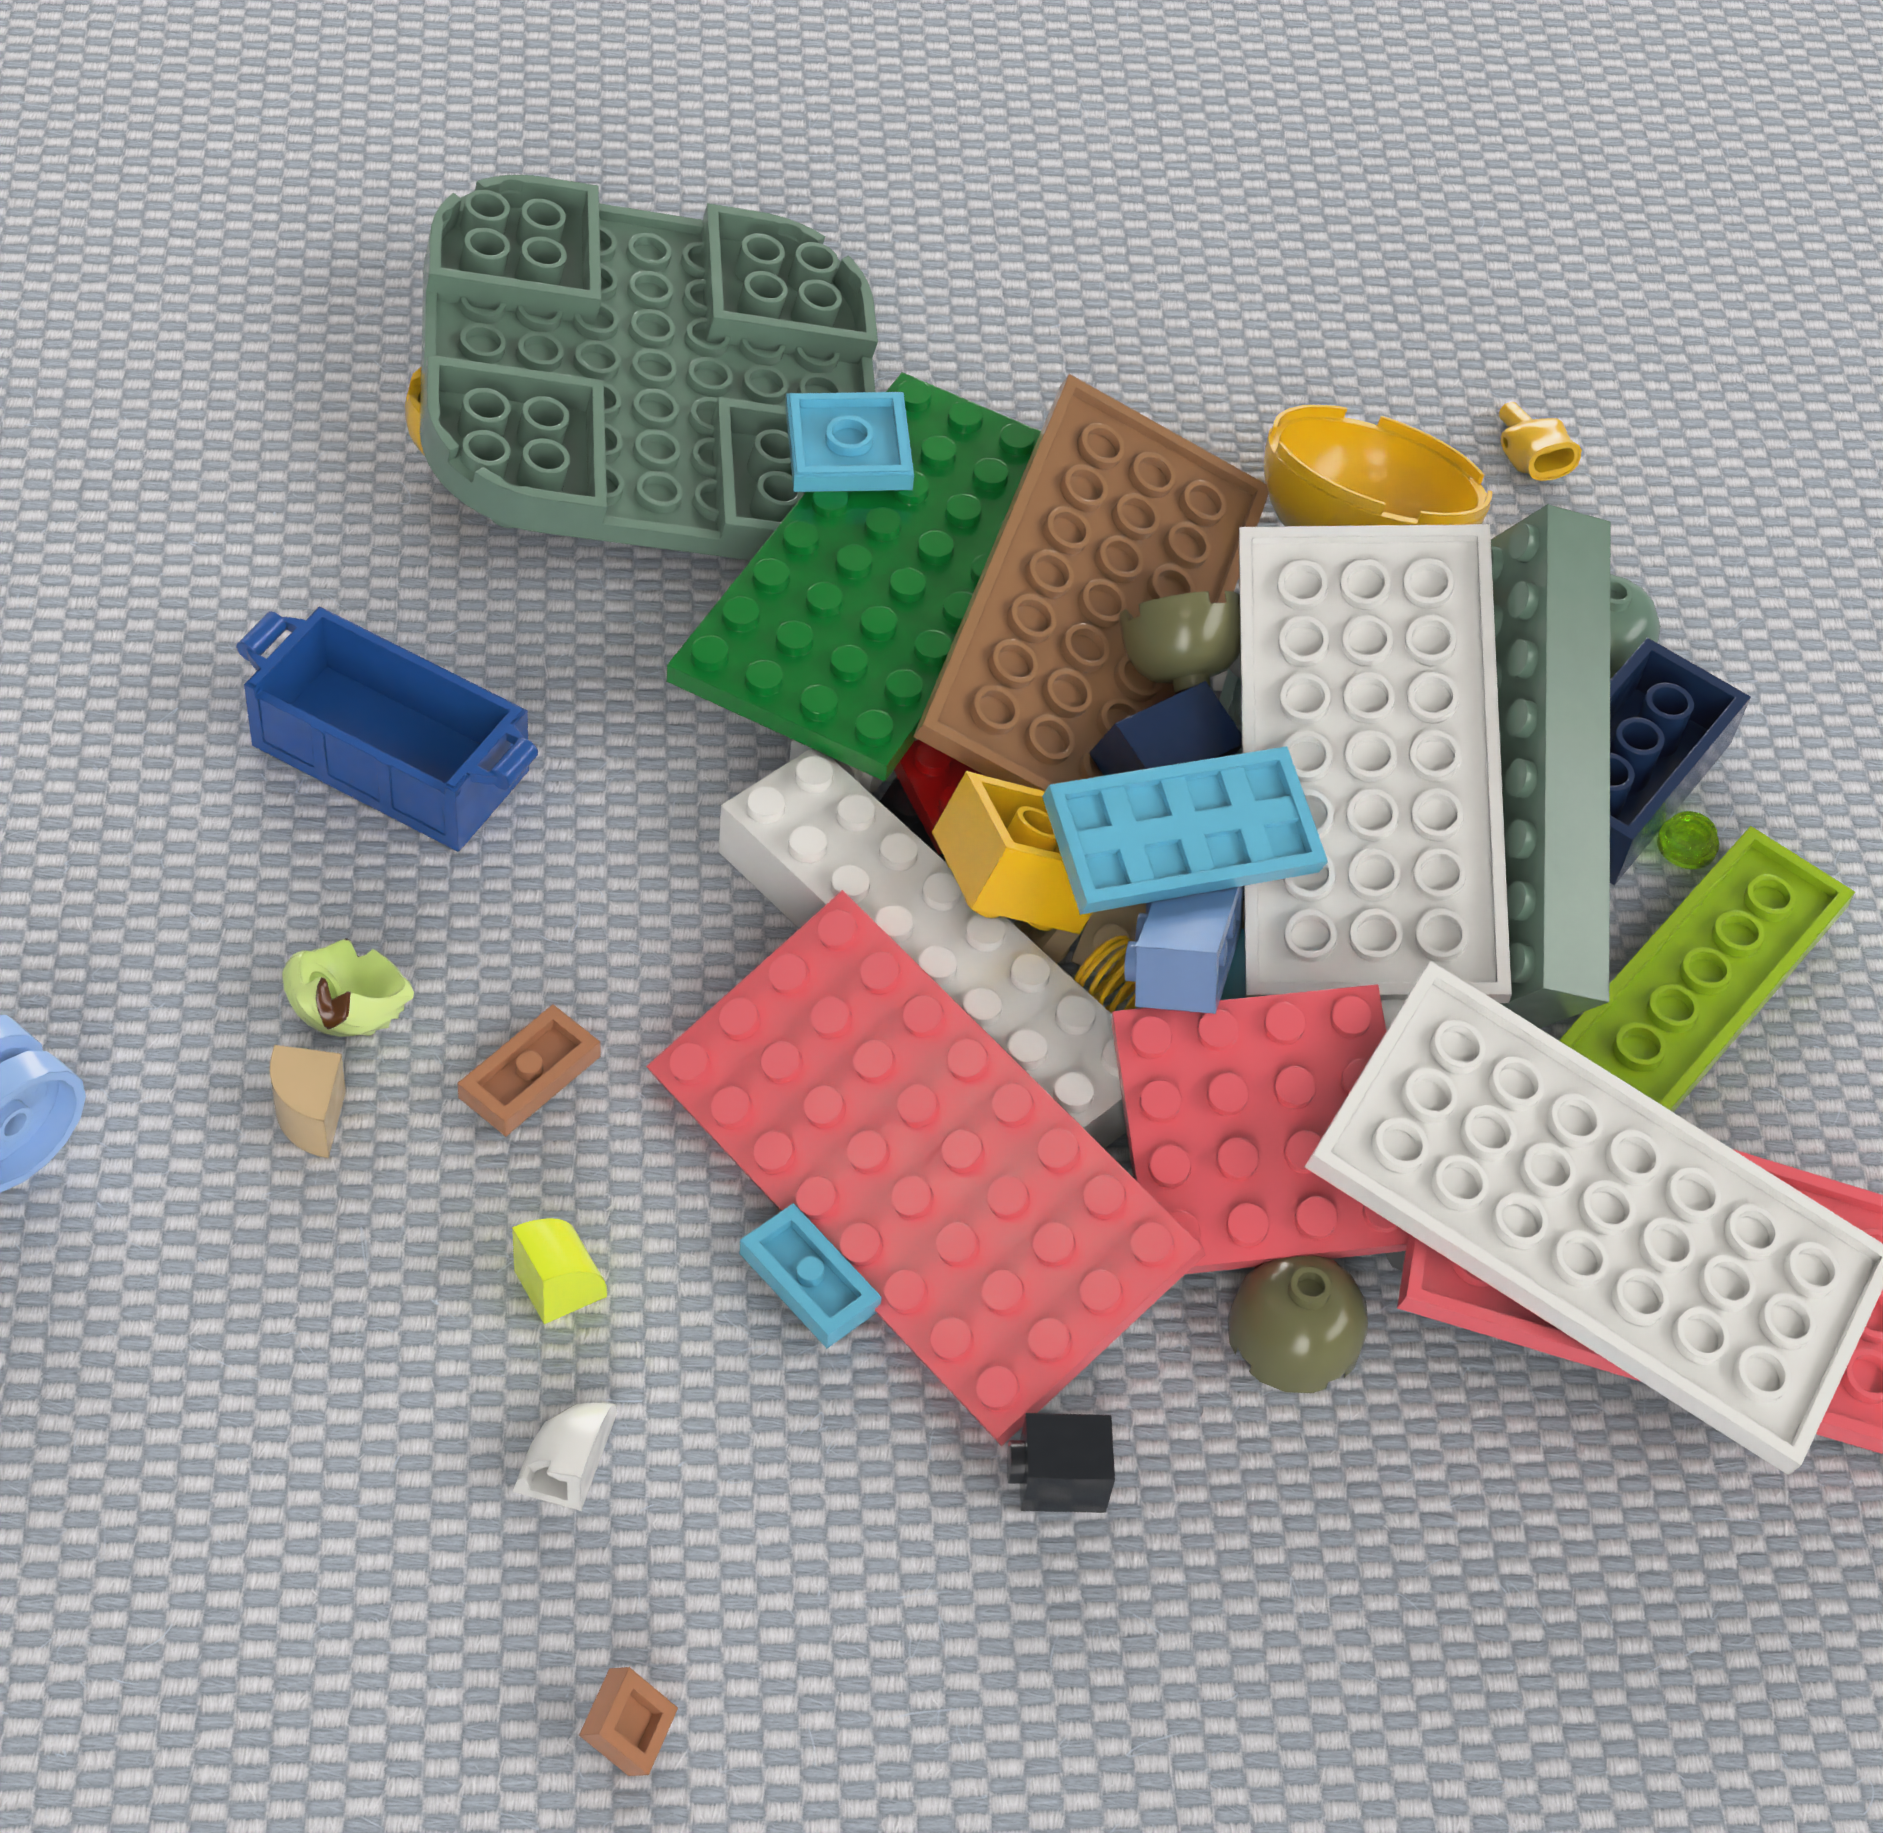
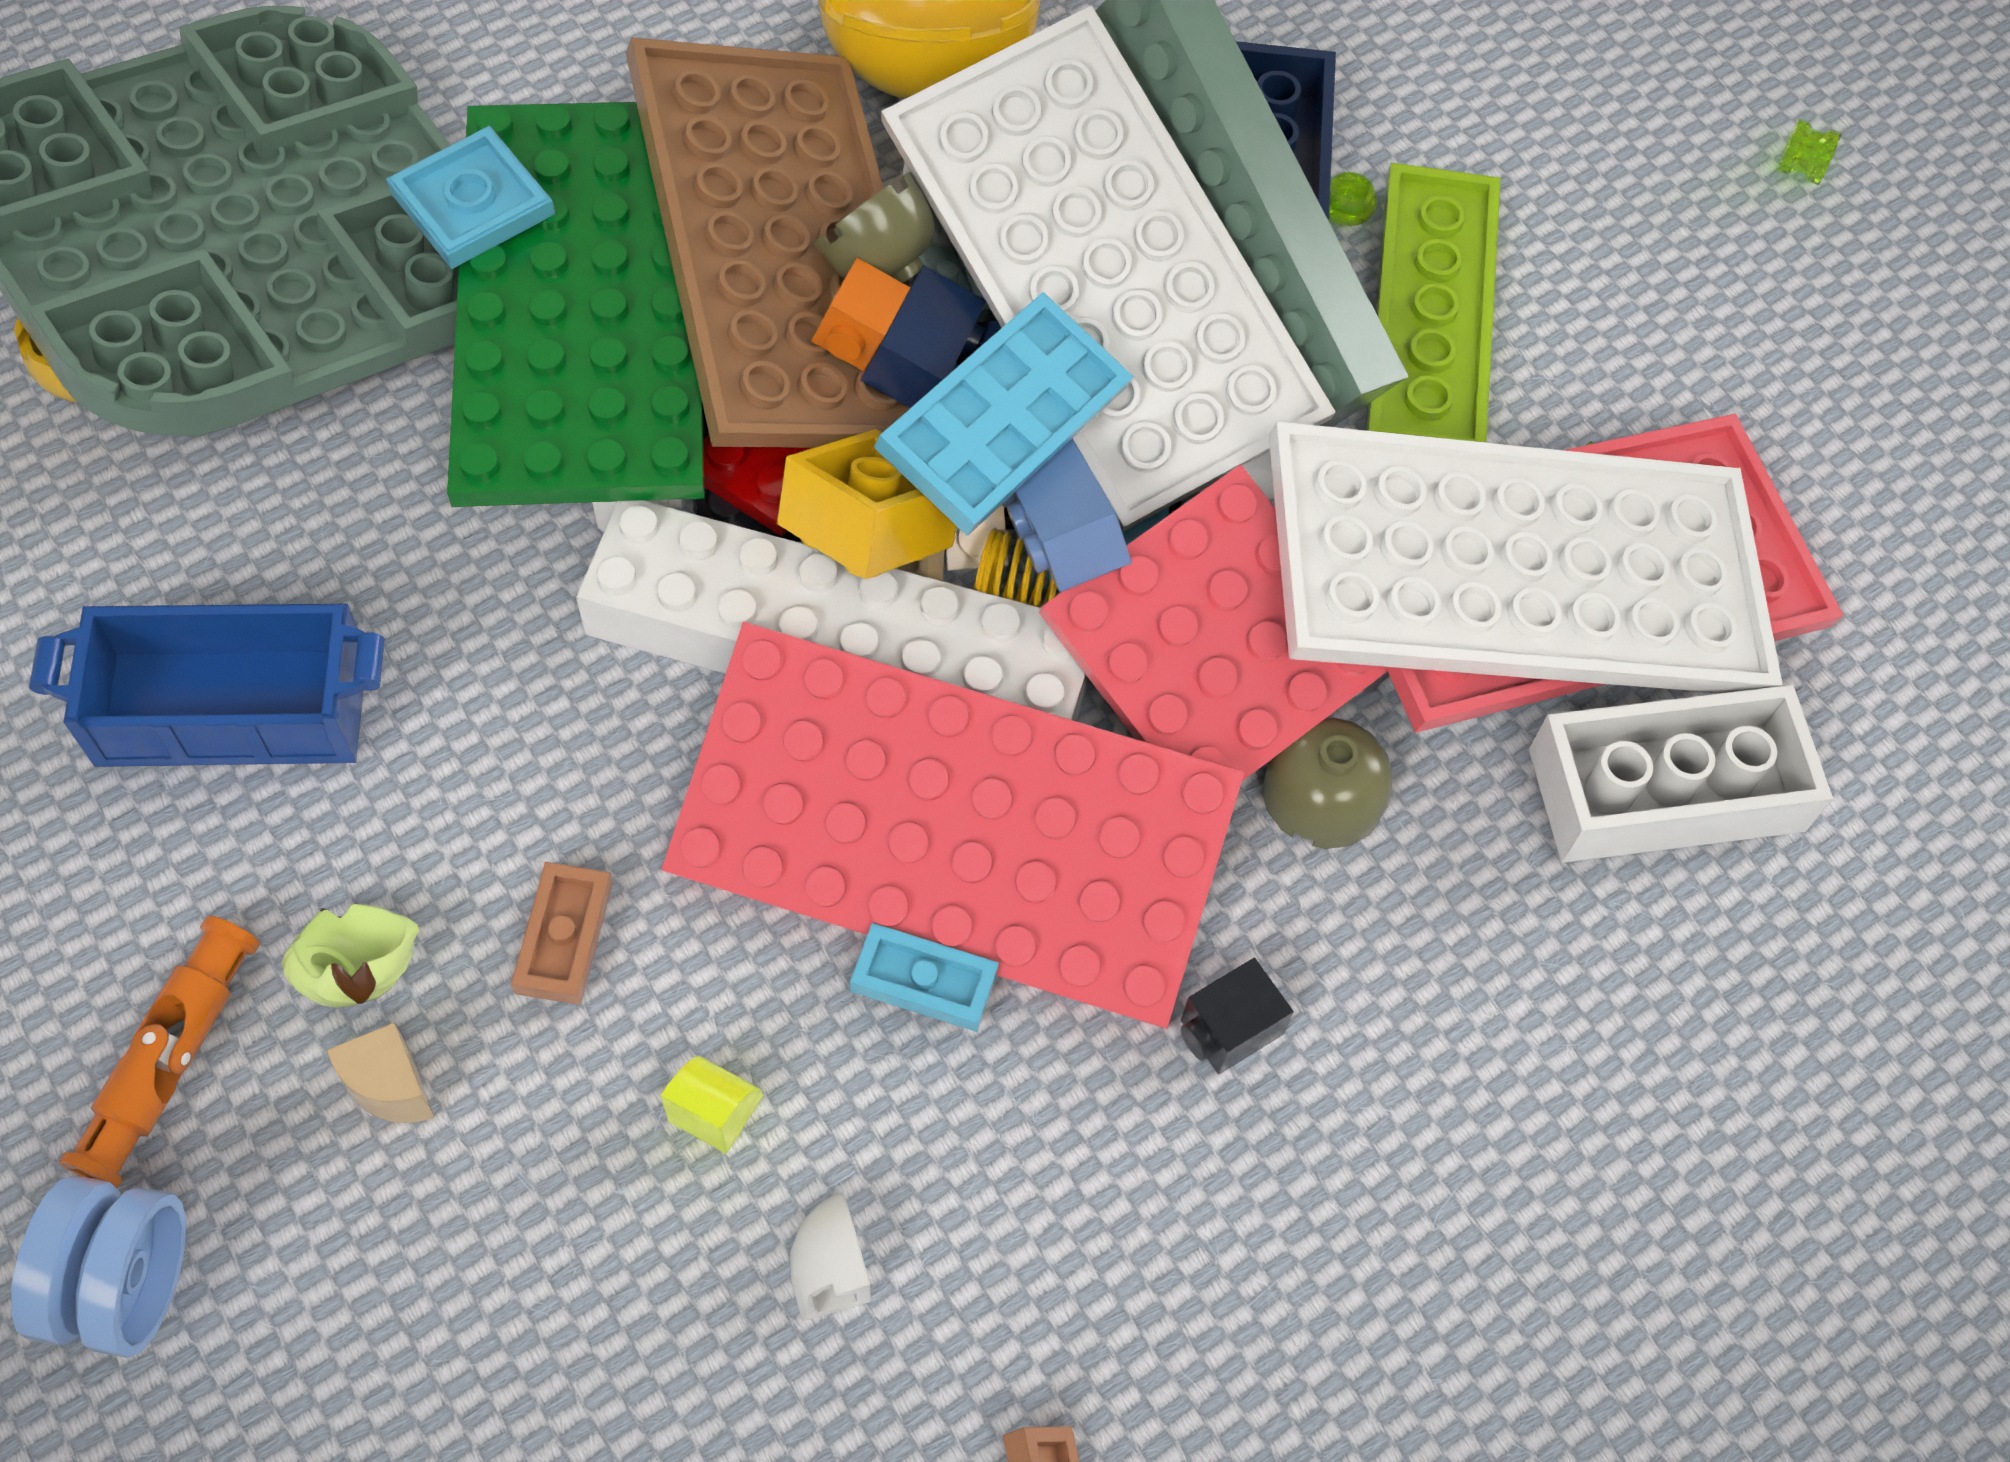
camera: 30 degrees left, 10 degrees up
(195, 957) = (156, 1060): none -> orange piece
(1117, 690) = (860, 314): none -> orange brick
(1648, 1495) = (1678, 773): none -> white brick

